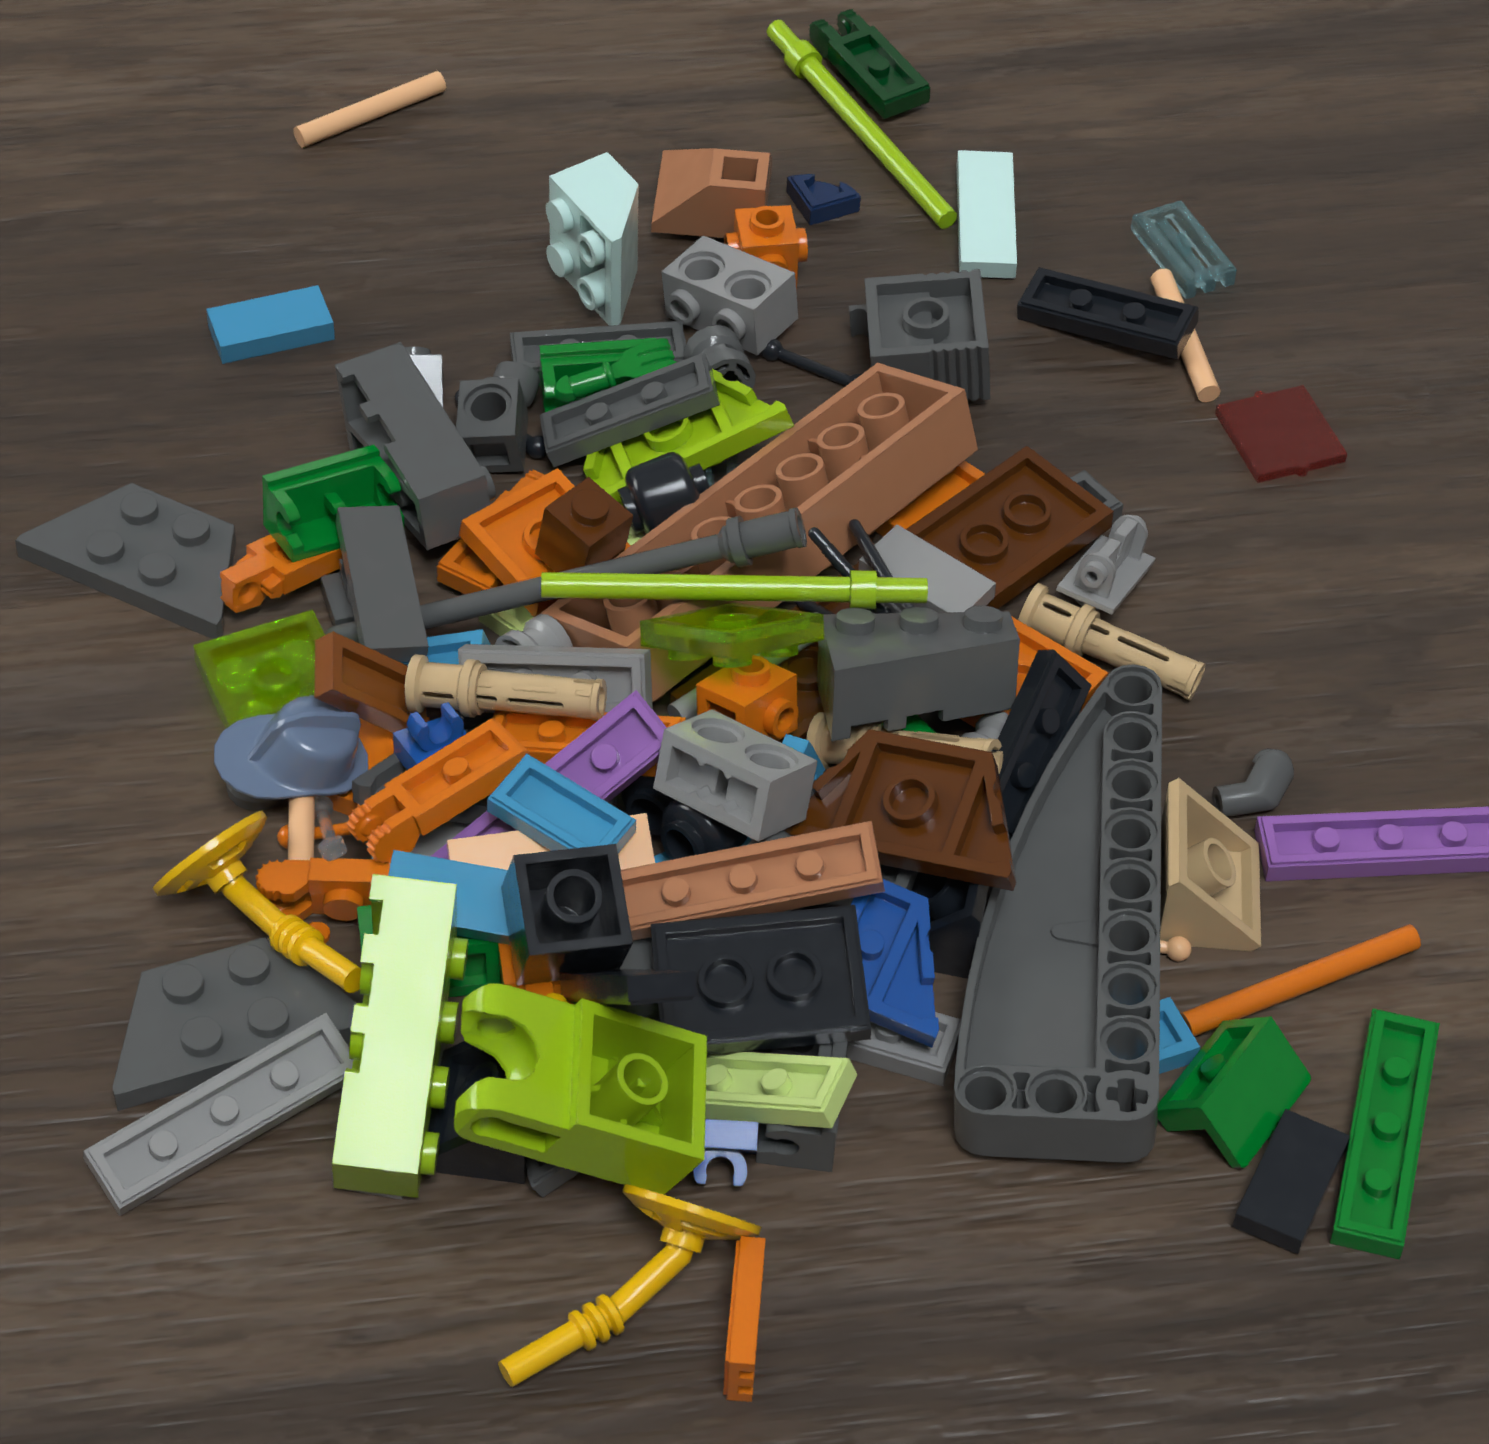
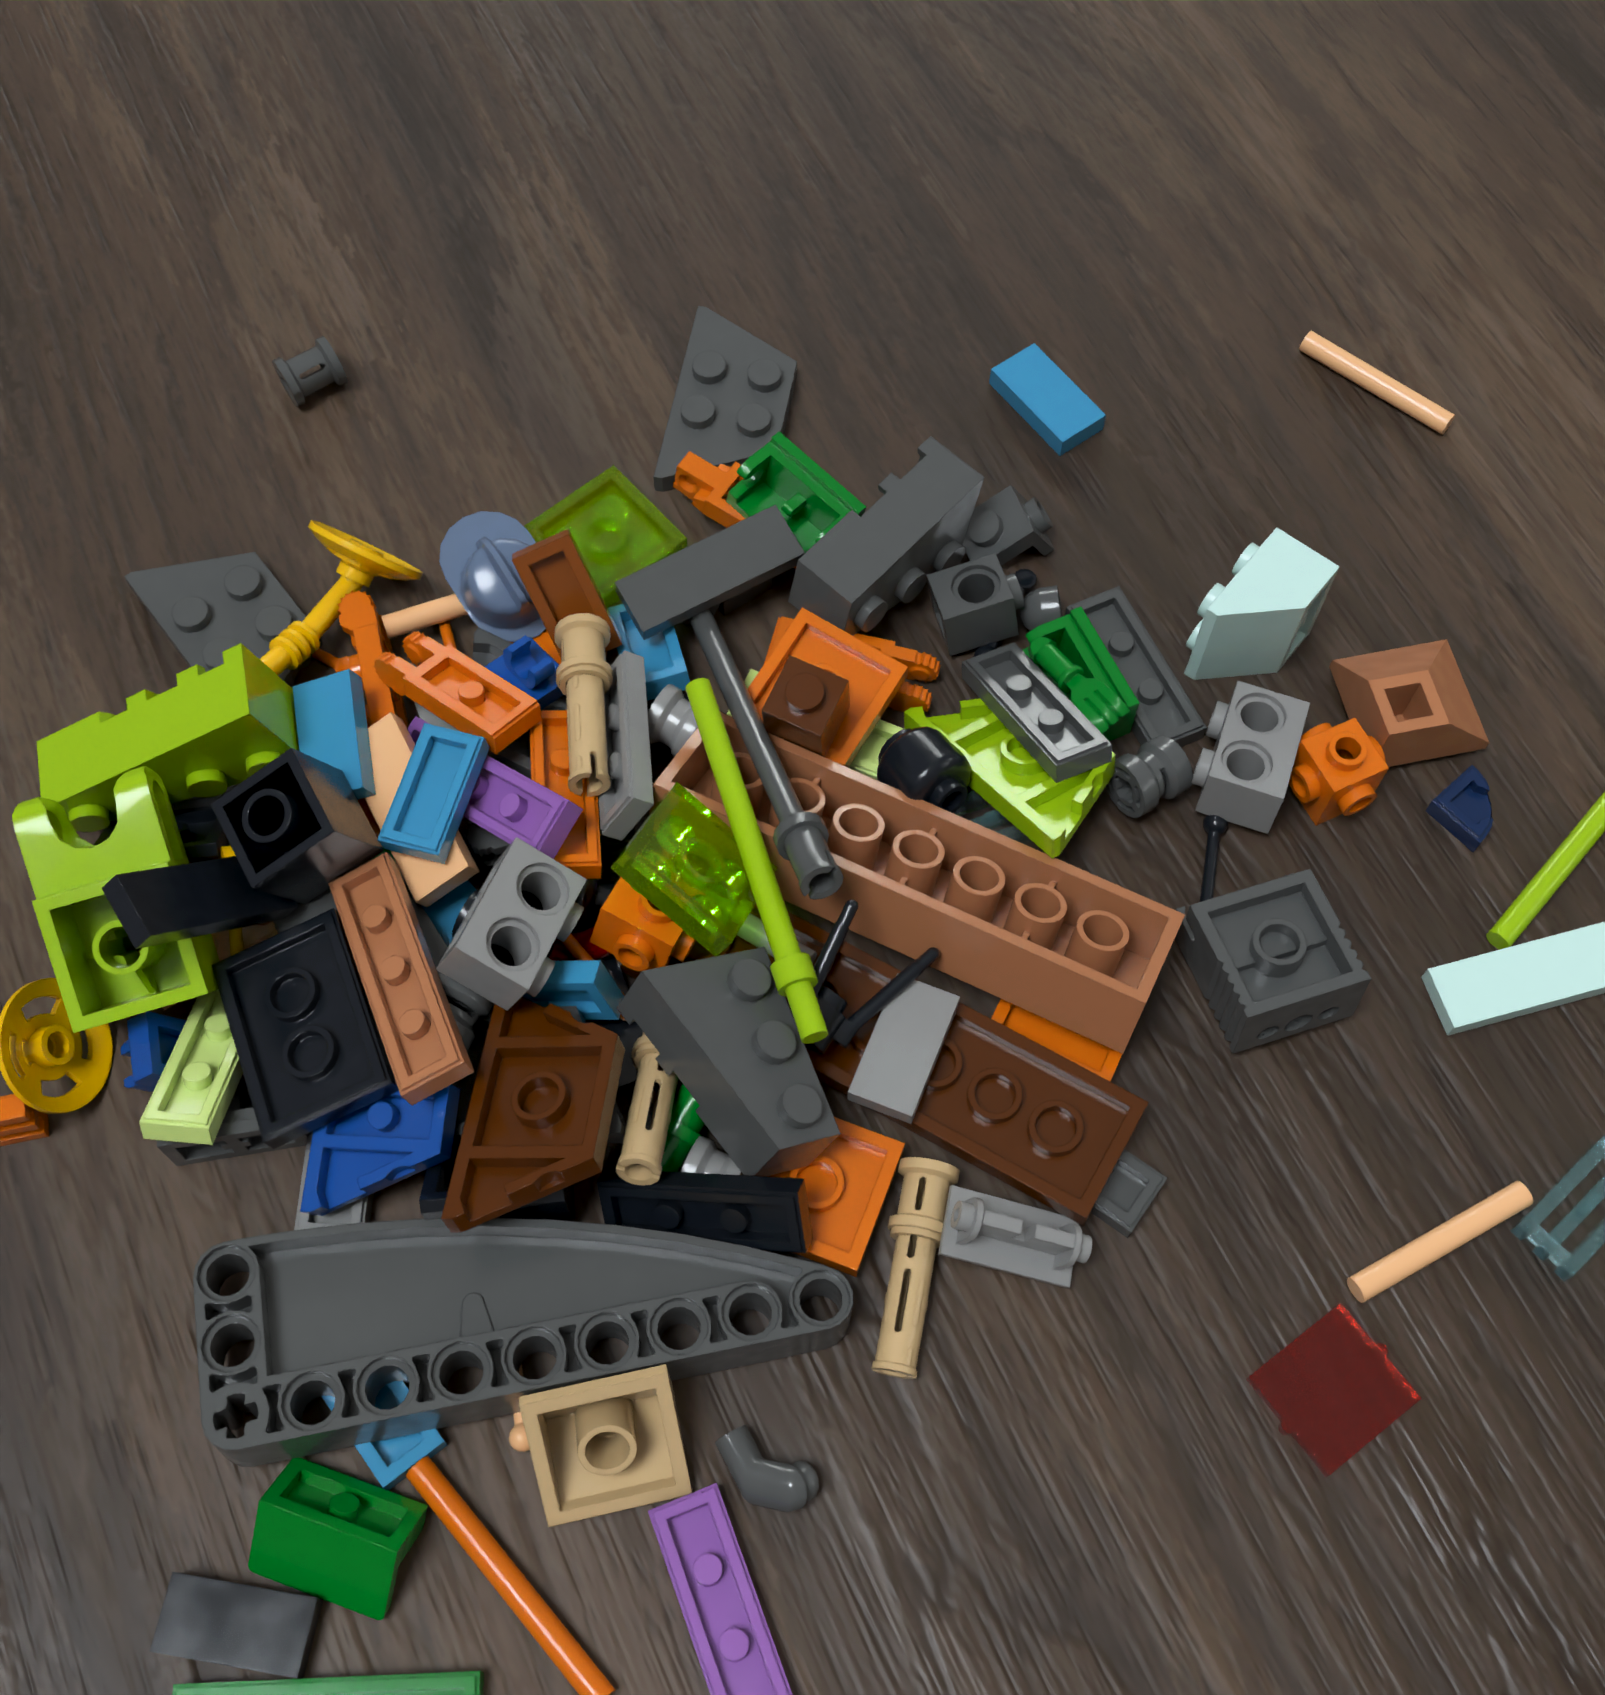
camera: 75 degrees right, 15 degrees up
(220, 1114) = (98, 639): light grey tile -> none
(332, 845) = (389, 634): clear hinge -> none
(1108, 313) = (1424, 1147): black tile -> none

